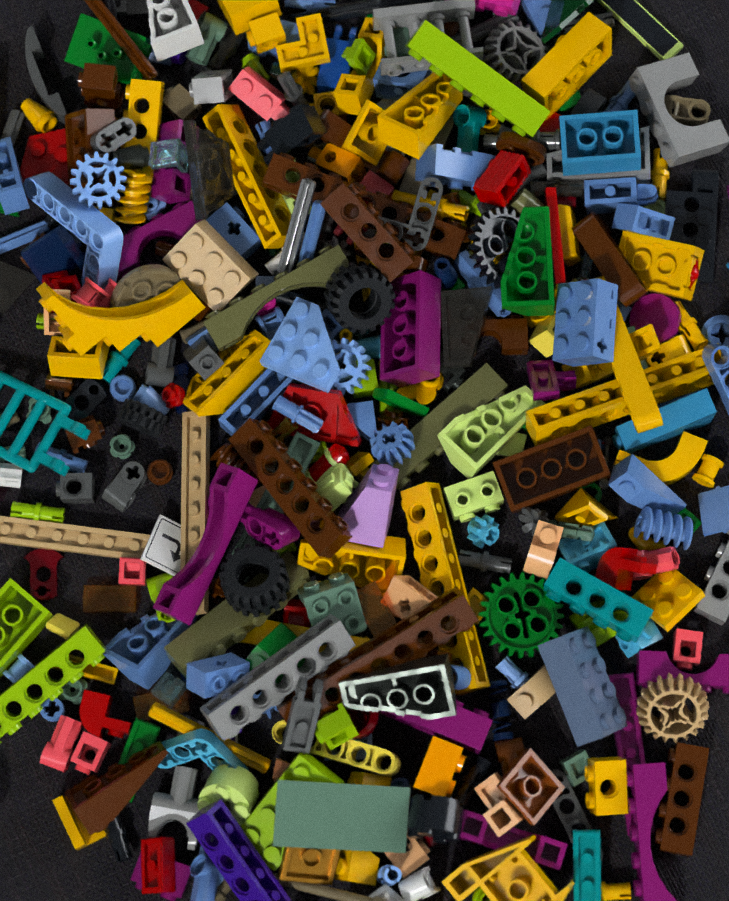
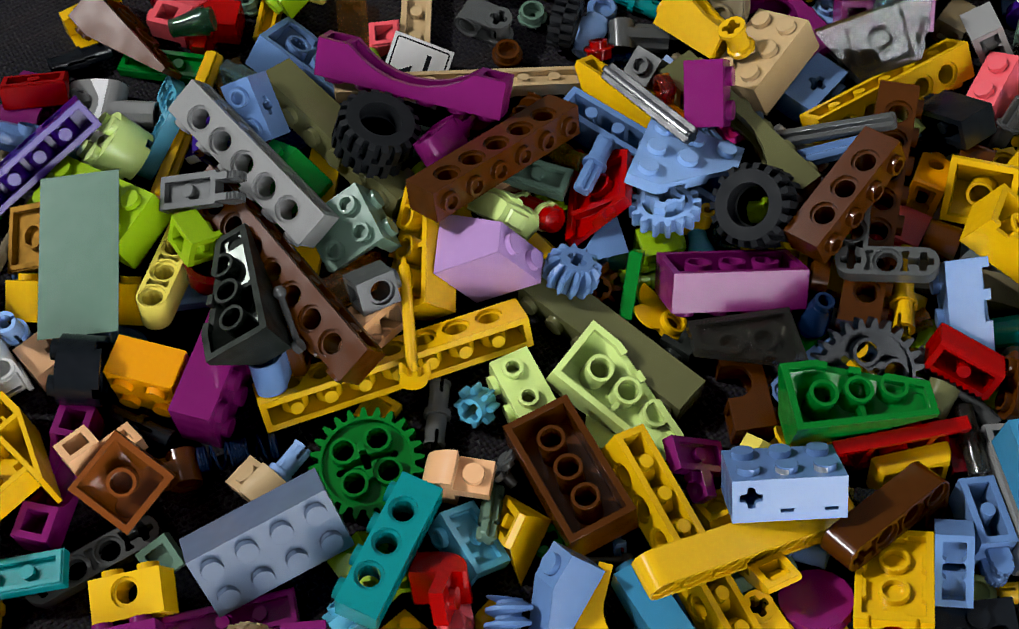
camera: 80 degrees right, 15 degrees down
(110, 727) = (196, 22): none -> clear green cone
(195, 287) = (735, 35): none -> yellow bush
(238, 348) = (664, 88): none -> clear red tile
(254, 362) = (649, 103): none -> axle
(259, 315) = (708, 92): none -> magenta brick
(392, 594) = (359, 285): none -> dark grey brick
(444, 648) = (297, 344): none -> dark grey hinge
(468, 570) = (410, 376): none -> yellow piece

